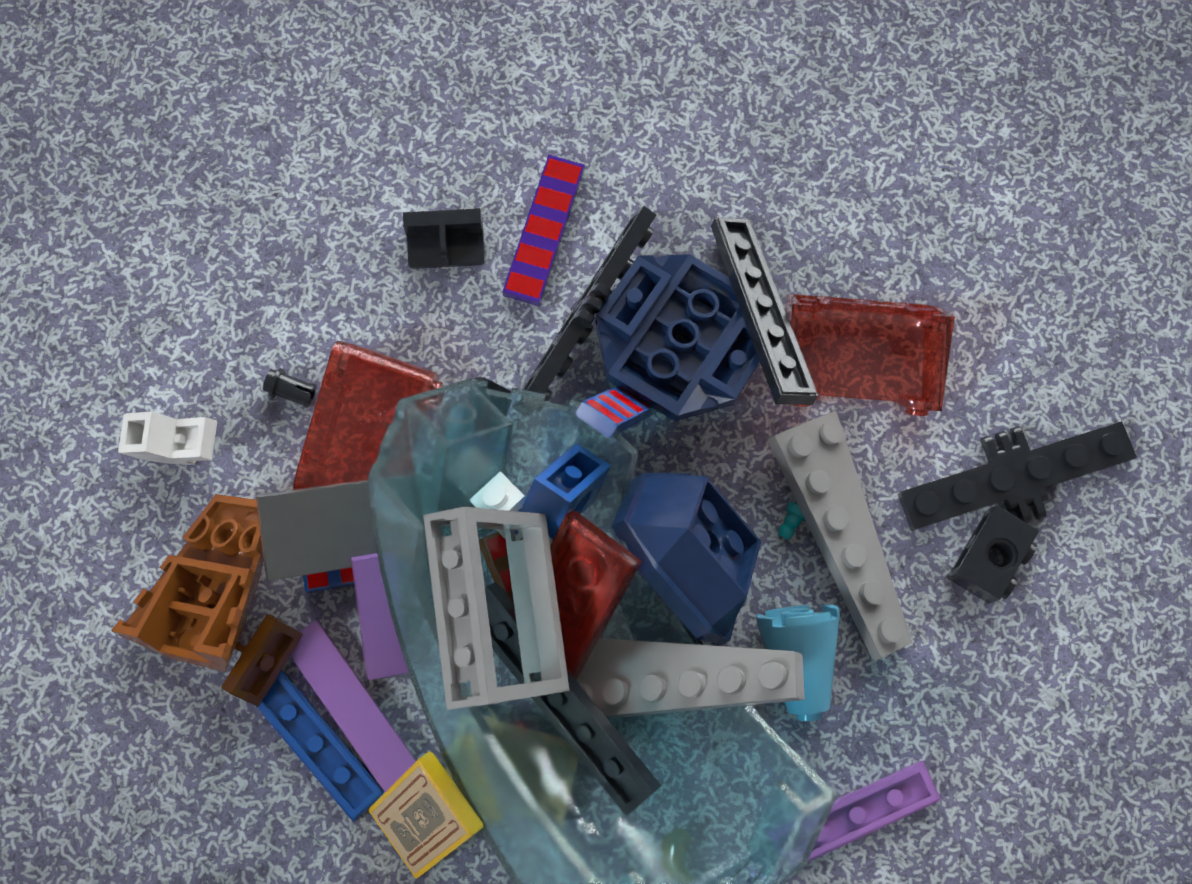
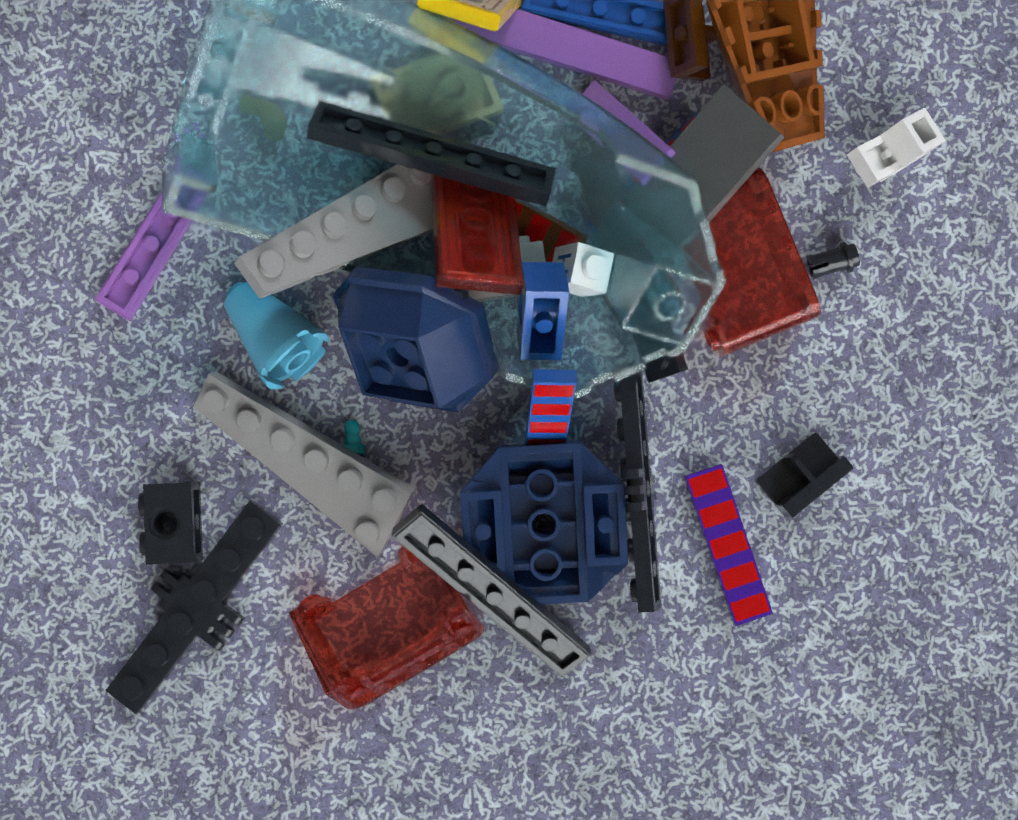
camera: 145 degrees right, 10 degrees up
(463, 611) = (547, 129): light grey window -> none

